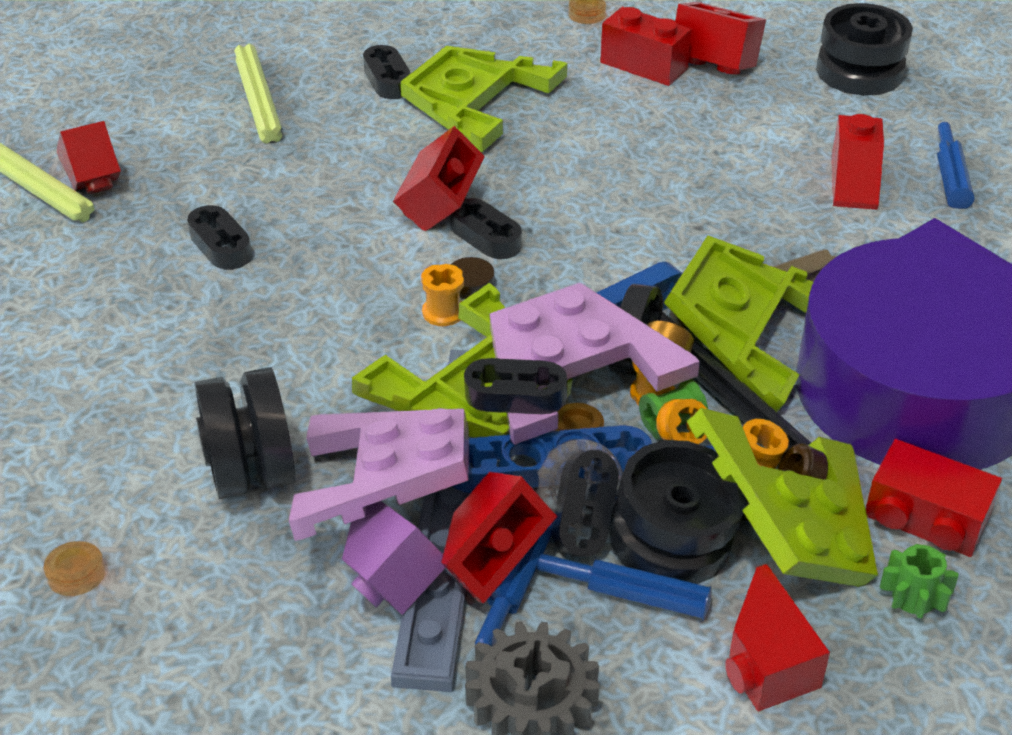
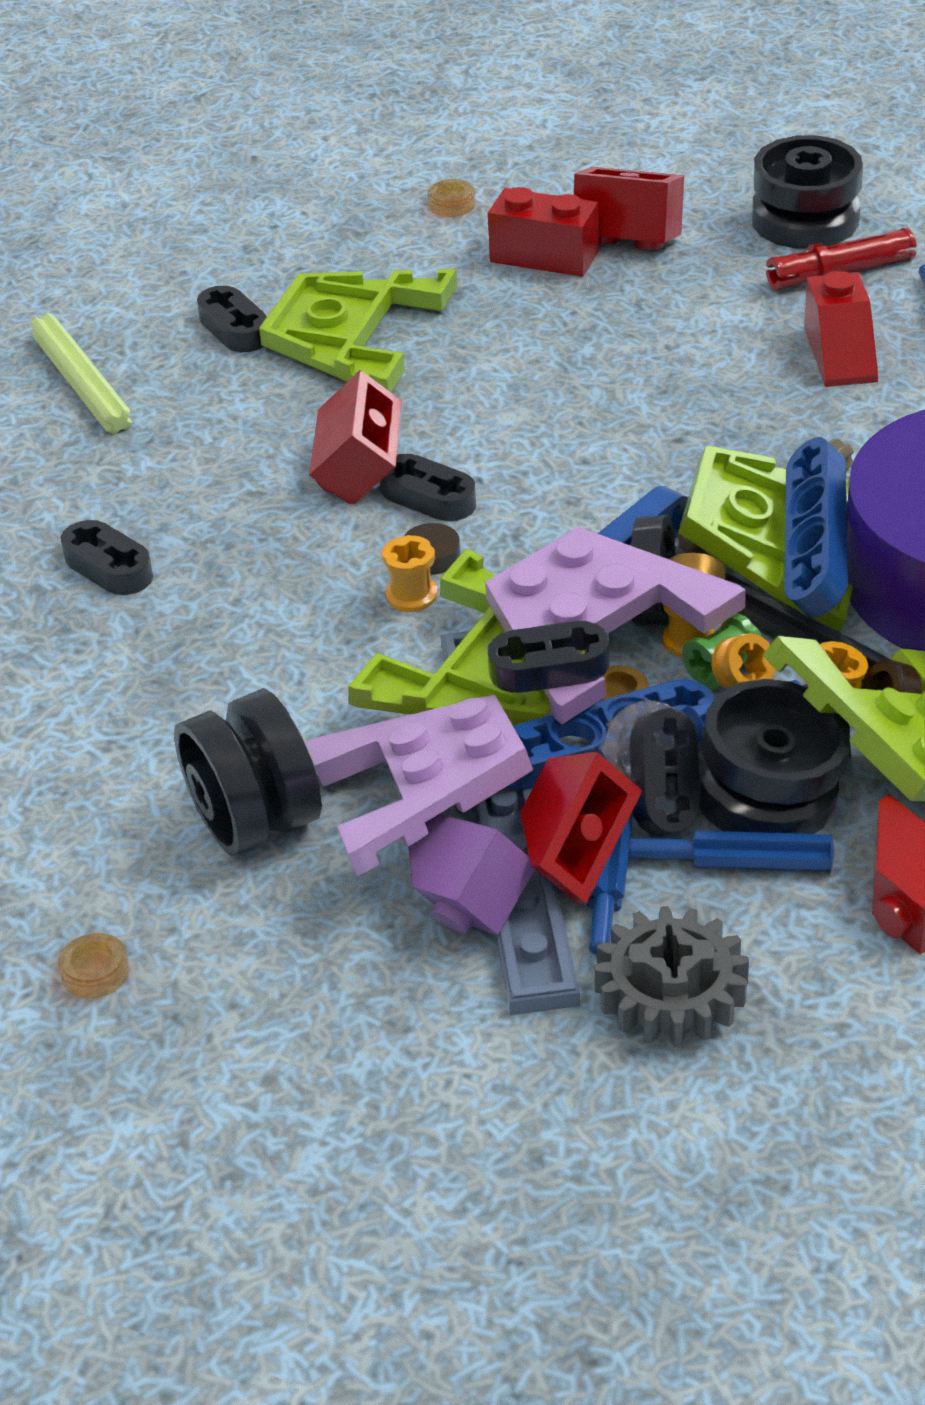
camera: 10 degrees left, 0 degrees up
(777, 321) = (816, 527): none -> blue beam
(878, 105) = (845, 257): none -> red pin

